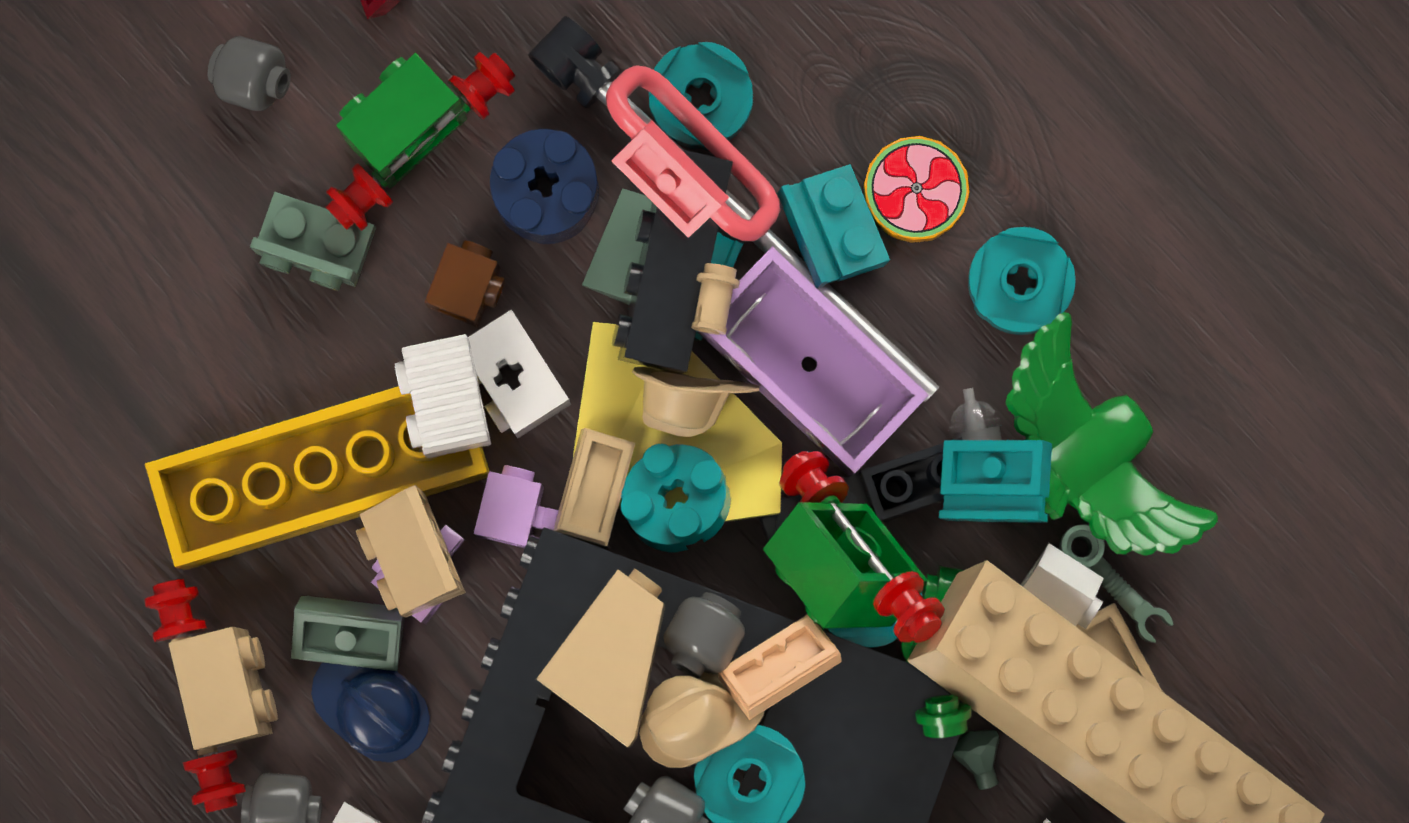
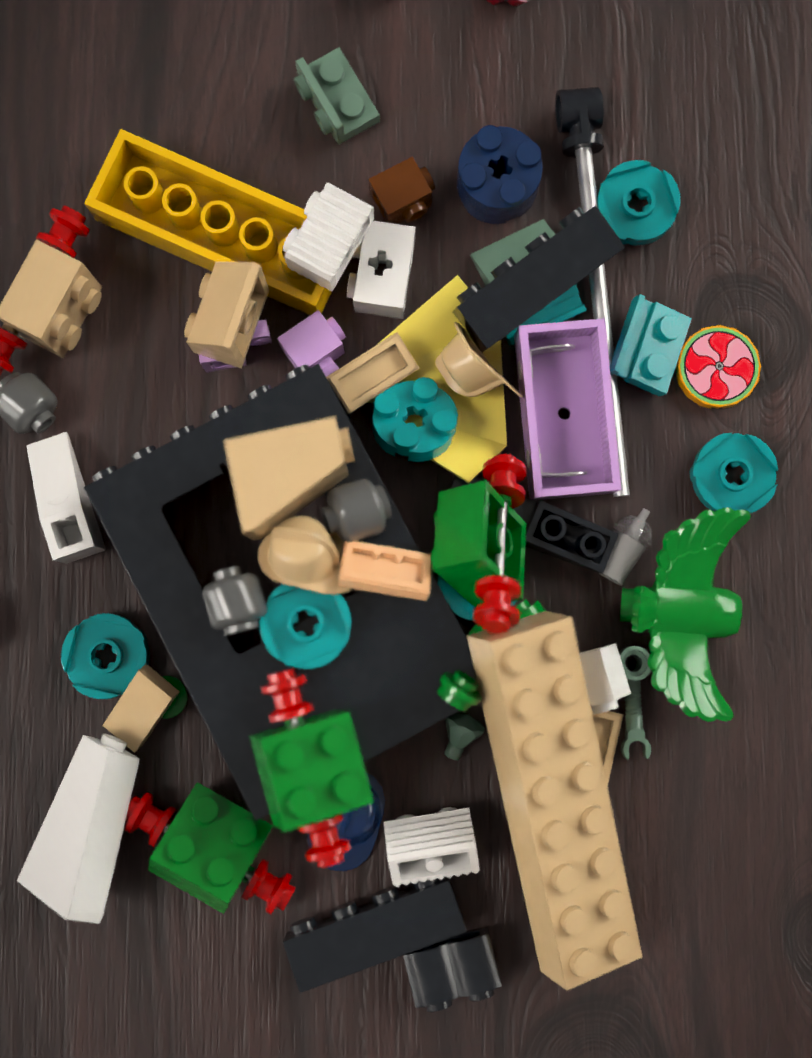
camera: 40 degrees right, 0 degrees up
(347, 633) = (154, 336): sand green slope -> none
(371, 710) = (132, 391): dark blue piece -> none
(405, 123) = (449, 67): green brick -> none
(670, 175) = (581, 222): coral bar -> none
(714, 298) = (542, 317): tan pin -> none
(995, 480) = (618, 575): teal plate -> none

